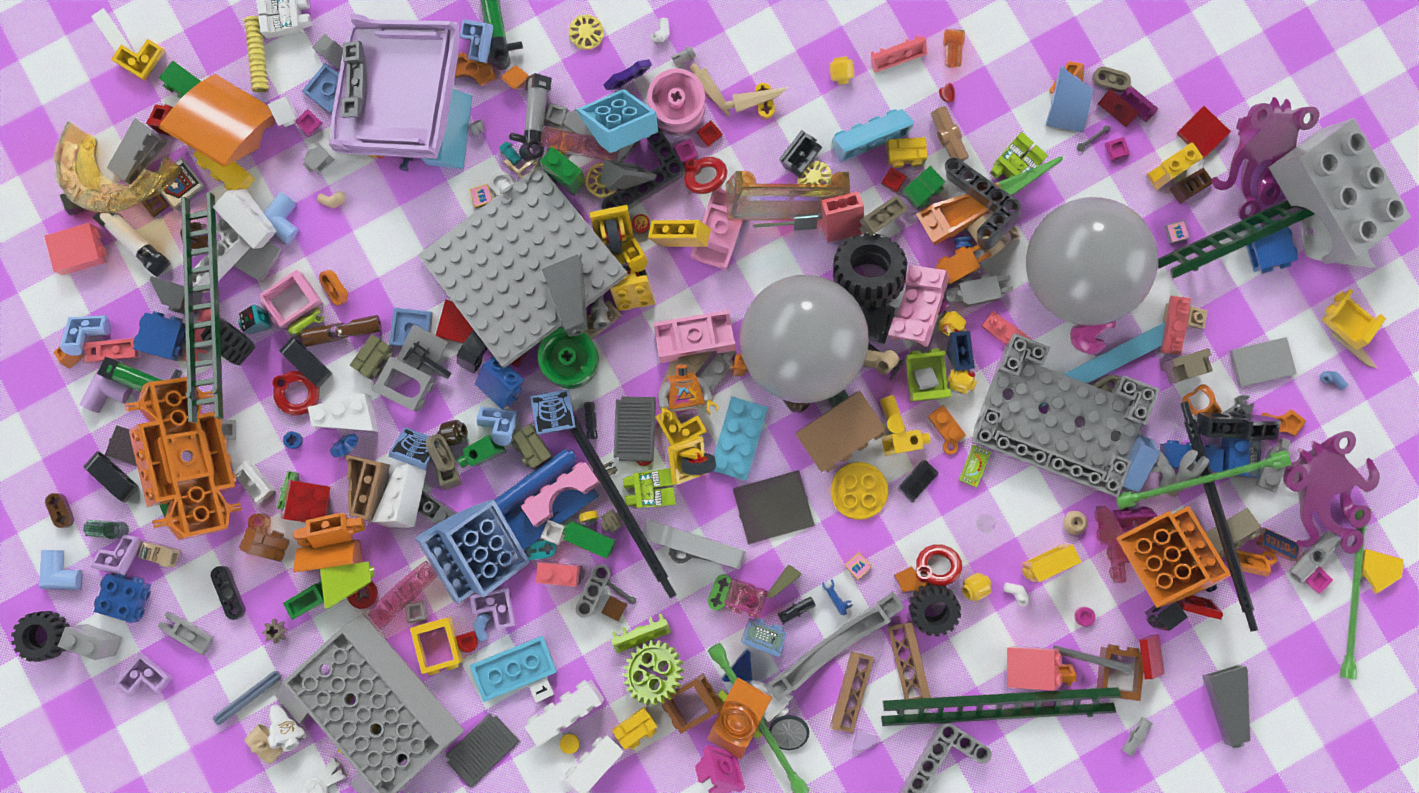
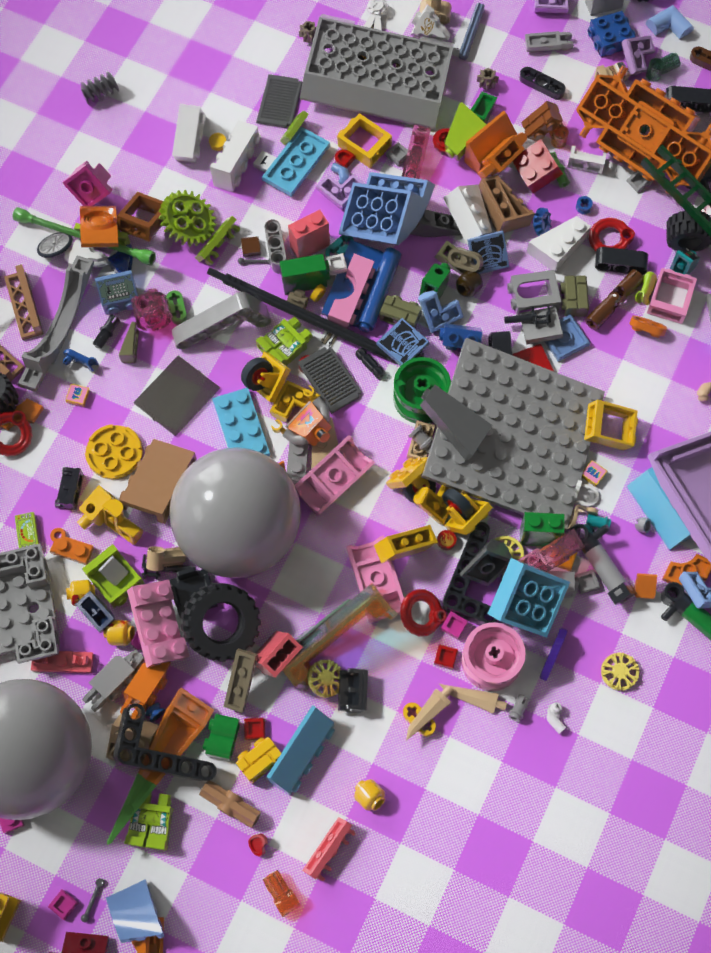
camera: 150 degrees right, 15 degrees down
(448, 229) = (594, 424): none -> yellow window
(490, 705) = (295, 125): none -> lime tile
(635, 728) = (175, 176): yellow brick -> none

